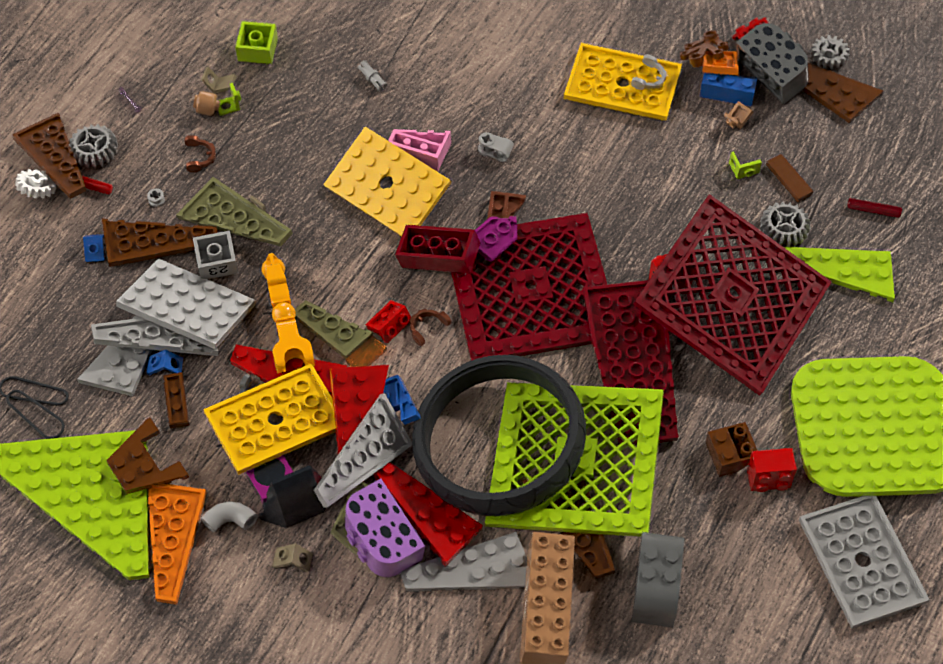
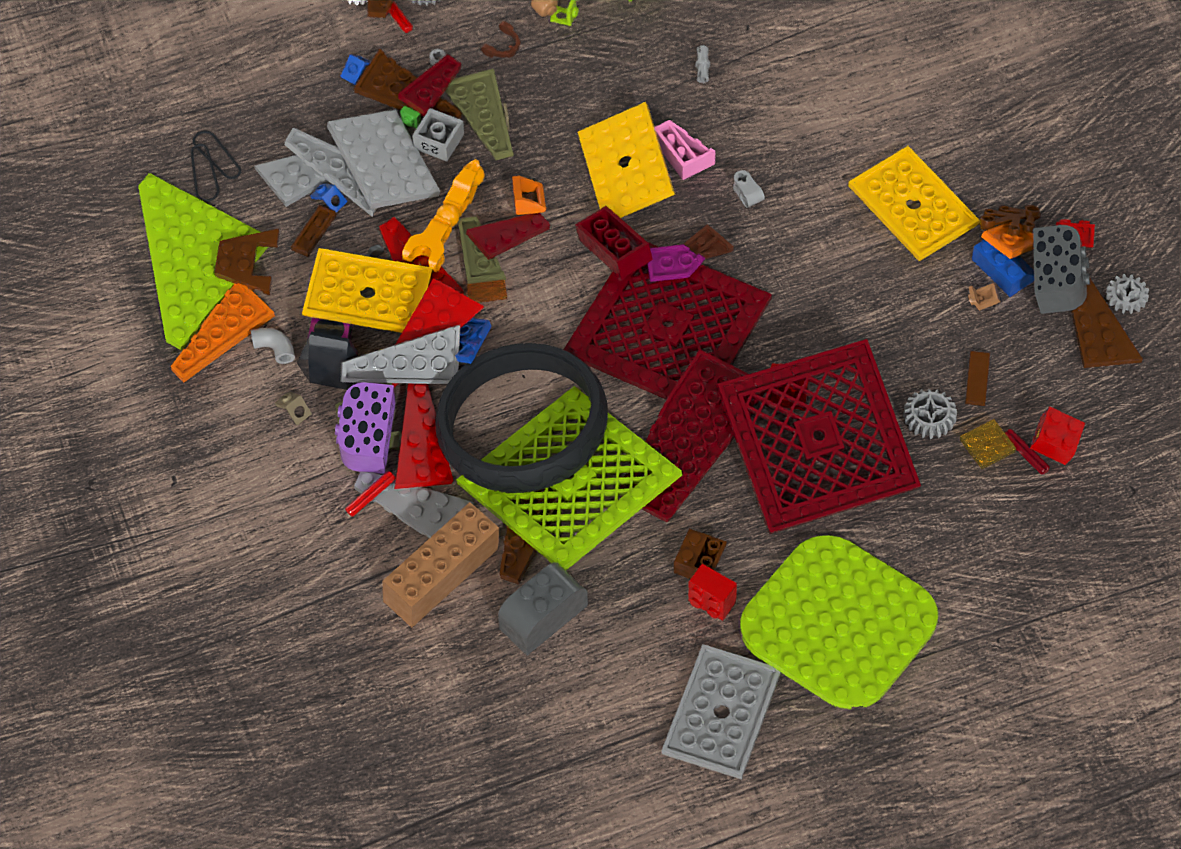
camera: 40 degrees right, 0 degrees up
(174, 221) = (430, 86): none -> dark red wing
(178, 256) = (410, 117): none -> bright green plate
(335, 268) = (524, 205): none -> orange tile
(342, 299) = (503, 235): none -> dark red wing
(389, 320) = (528, 277): red bracket -> none
(428, 585) = (370, 493): none -> red axle
(442, 316) = (555, 288): copper piece -> none
(640, 84) = (951, 201): light grey piece -> none
(744, 170) = (943, 346): lime bracket -> none
(844, 219) = (987, 444): none -> clear yellow plate
(852, 268) = (950, 486): lime wing -> none
(888, 180) = (1057, 435): none -> red brick

